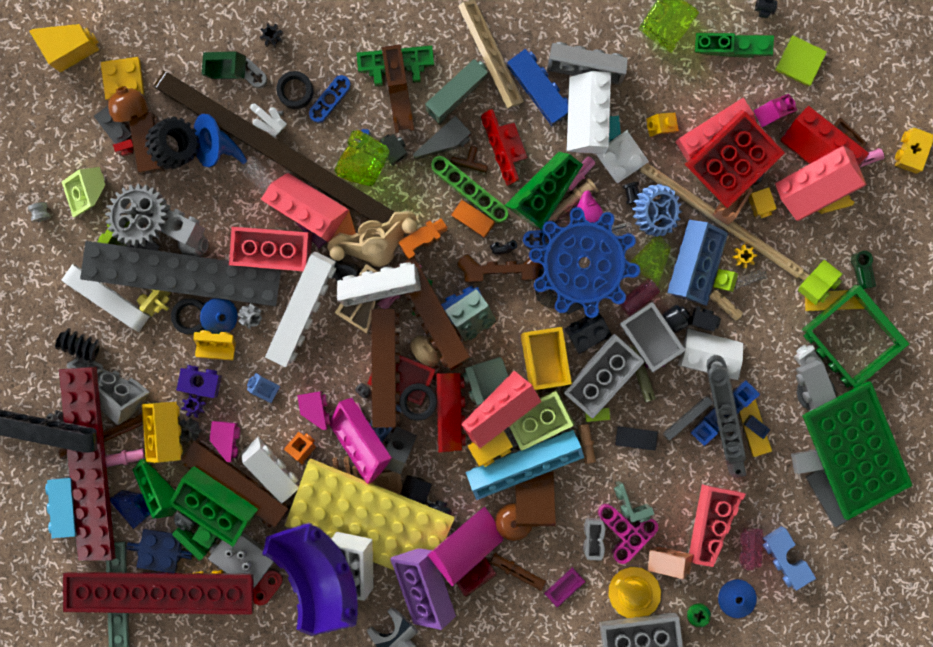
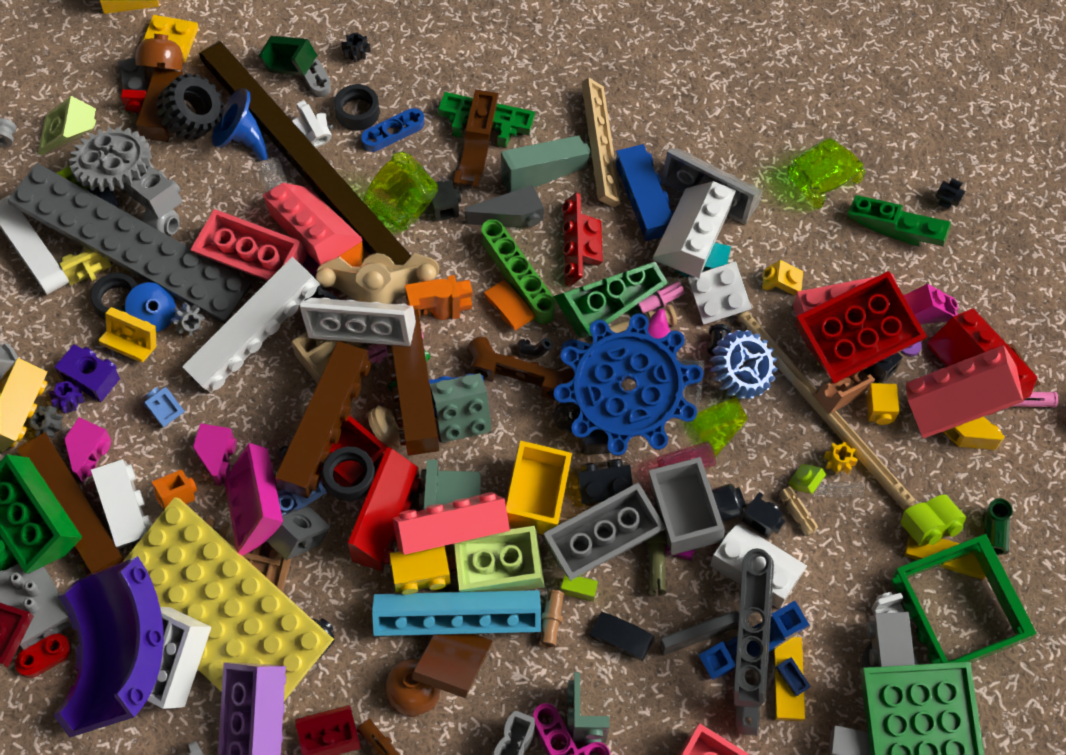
camera: 20 degrees right, 25 degrees down
(416, 489) = (301, 591): black brick -> none
(466, 546) = (333, 682): dark pink slope -> none
(469, 163) = (530, 246): reddish brown piece -> none
(697, 262) = (777, 445): medium blue slope -> none
(800, 60) = (977, 267): lime tile -> none

